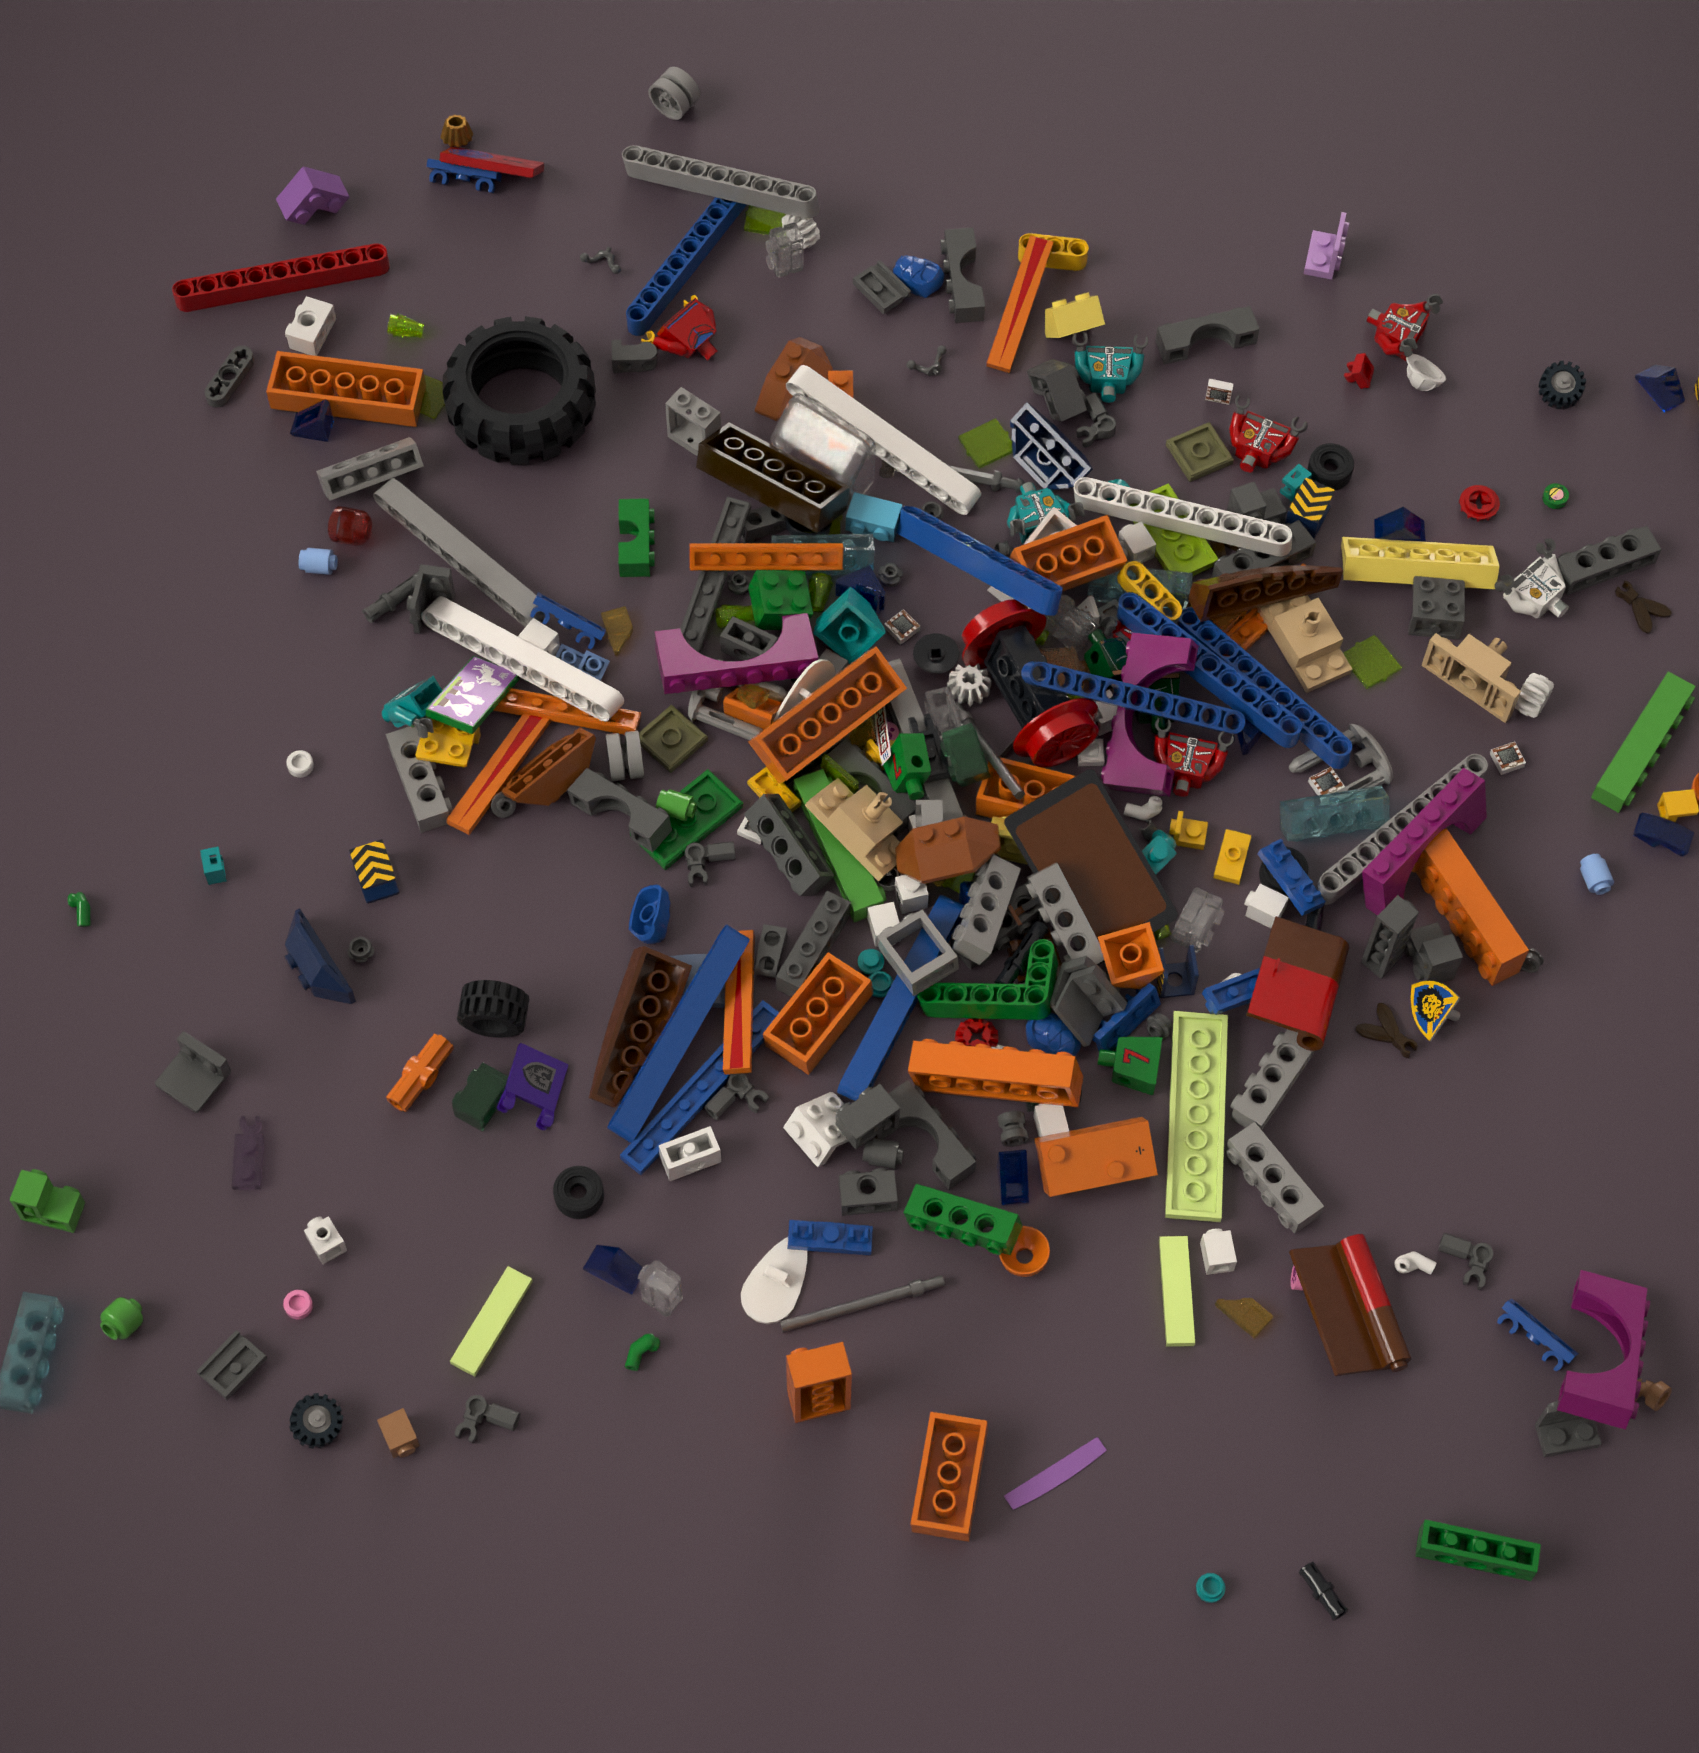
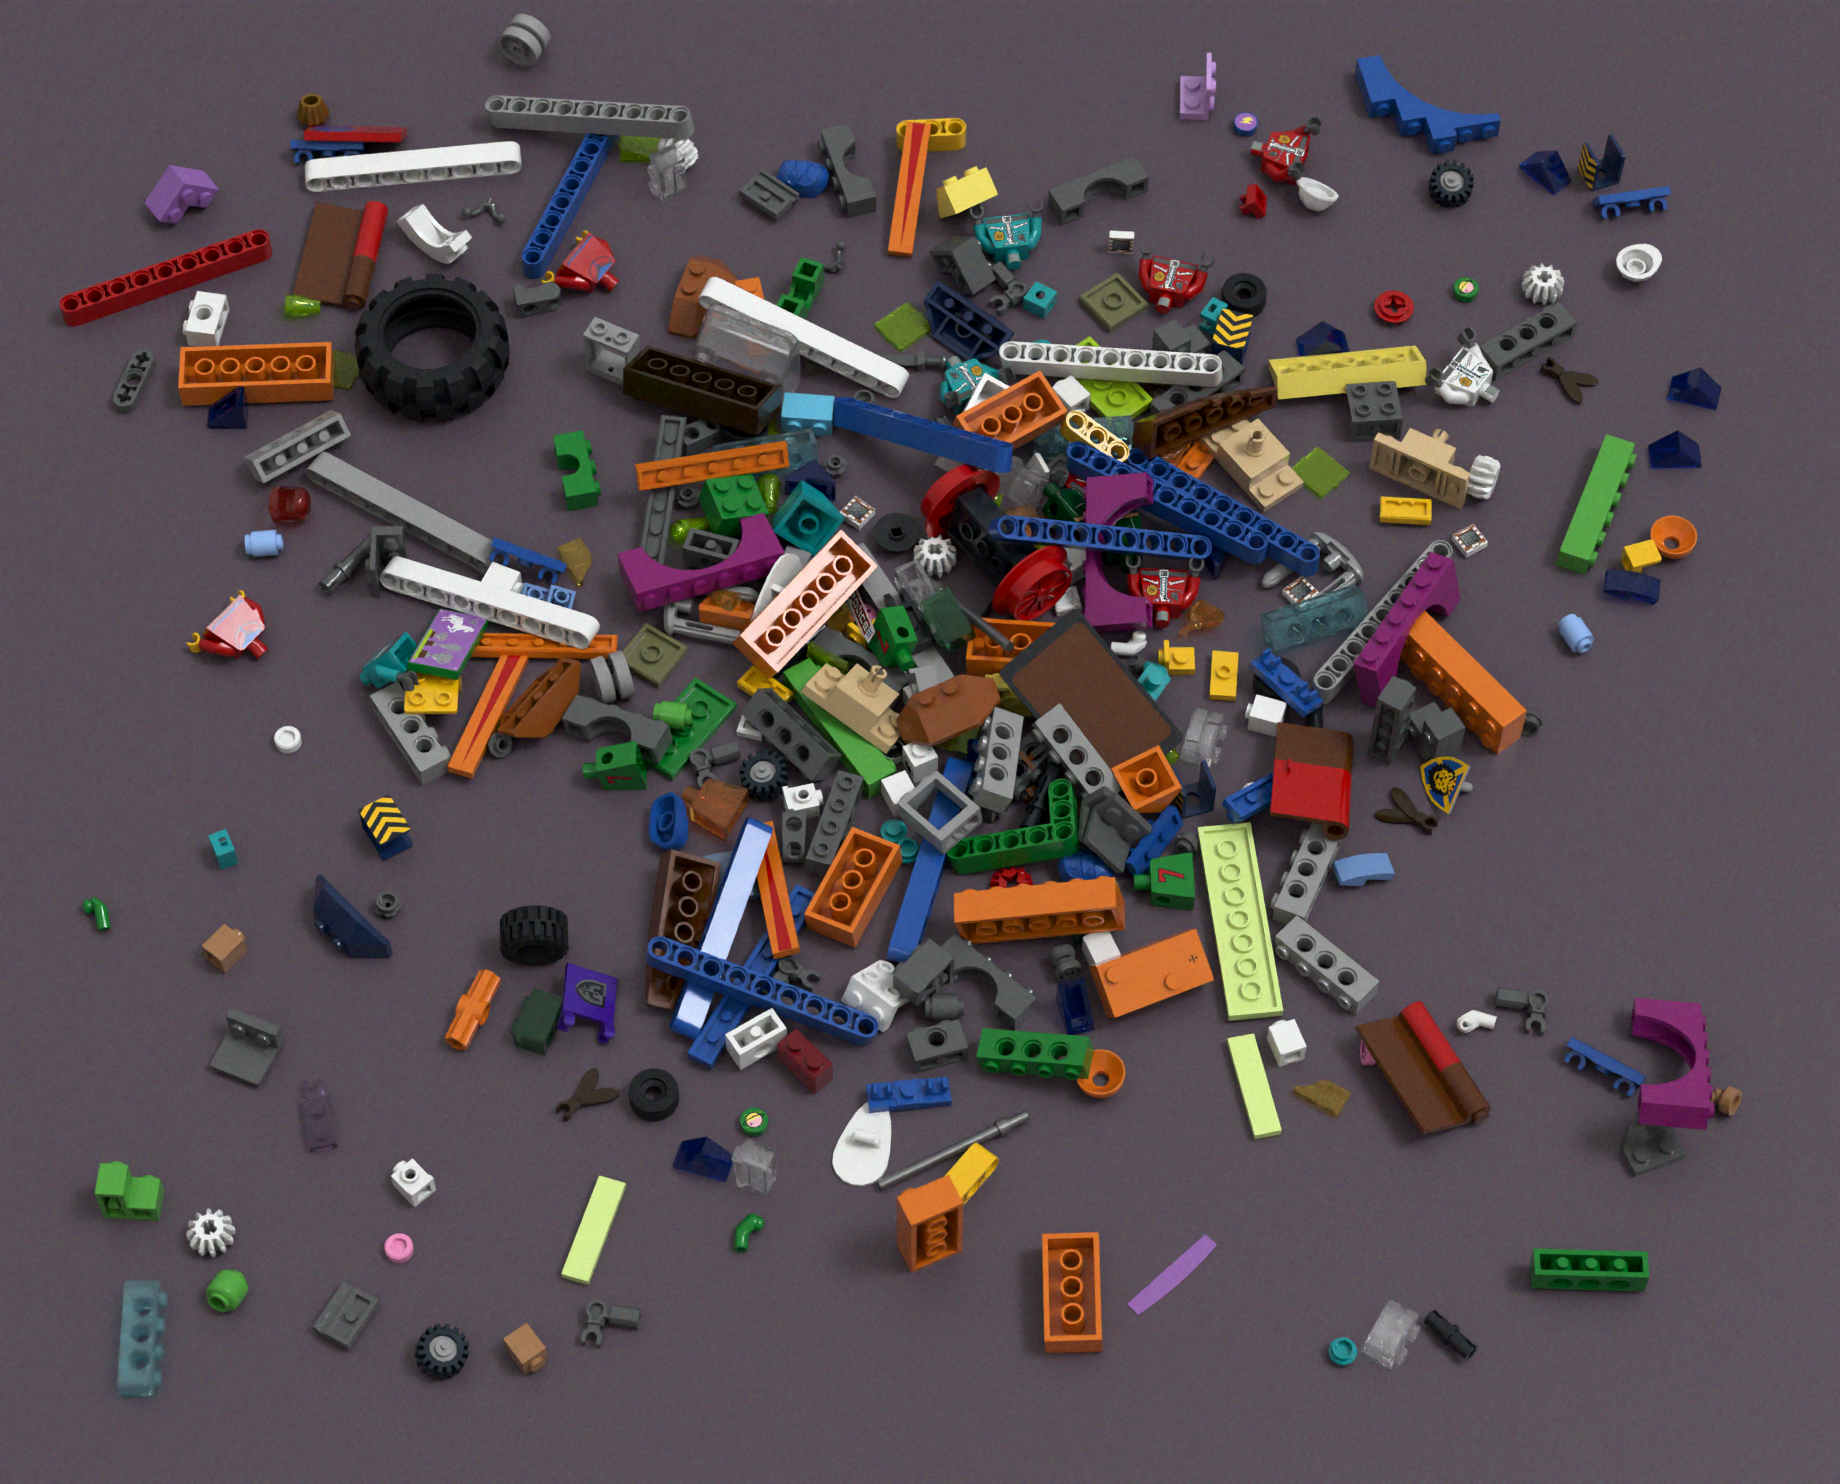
camera: 10 degrees left, 5 degrees down
(119, 1265) = (206, 1224): none -> white gear
(194, 966) = (225, 948): none -> medium nougat brick
(270, 645) = (234, 631): none -> torso
(454, 280) = (341, 254): none -> reddish brown door
(514, 1180) = (587, 1095): none -> dark brown piece
(541, 203) = (412, 166): none -> white beam
(544, 277) = (431, 236): none -> white arch
(613, 849) = (618, 767): none -> green torso
(671, 1237) = (754, 1122): none -> green tile
(689, 1106) = (775, 988): none -> blue beam
(701, 905) = (717, 806): none -> clear orange torso
(734, 1185) = (805, 1061): none -> dark red brick
(754, 882) = (764, 775): none -> black wheel
(791, 921) = (803, 799): none -> white brick
(871, 1333) = (972, 1170): none -> yellow beam
(898, 385) = (805, 287): none -> green arch
(1126, 444) = (1040, 306): none -> teal piece
(1223, 792) = (1202, 617): none -> clear orange piece
(1262, 1580) = (1390, 1335): none -> clear brick
(1329, 1082) = (1359, 868): none -> medium blue slope
(1368, 289) = (1245, 124): none -> tile
(1449, 716) = (1405, 510): none -> yellow plate
(1538, 308) = (1413, 116): none -> blue arch
(1634, 503) = (1542, 284): none -> white gear

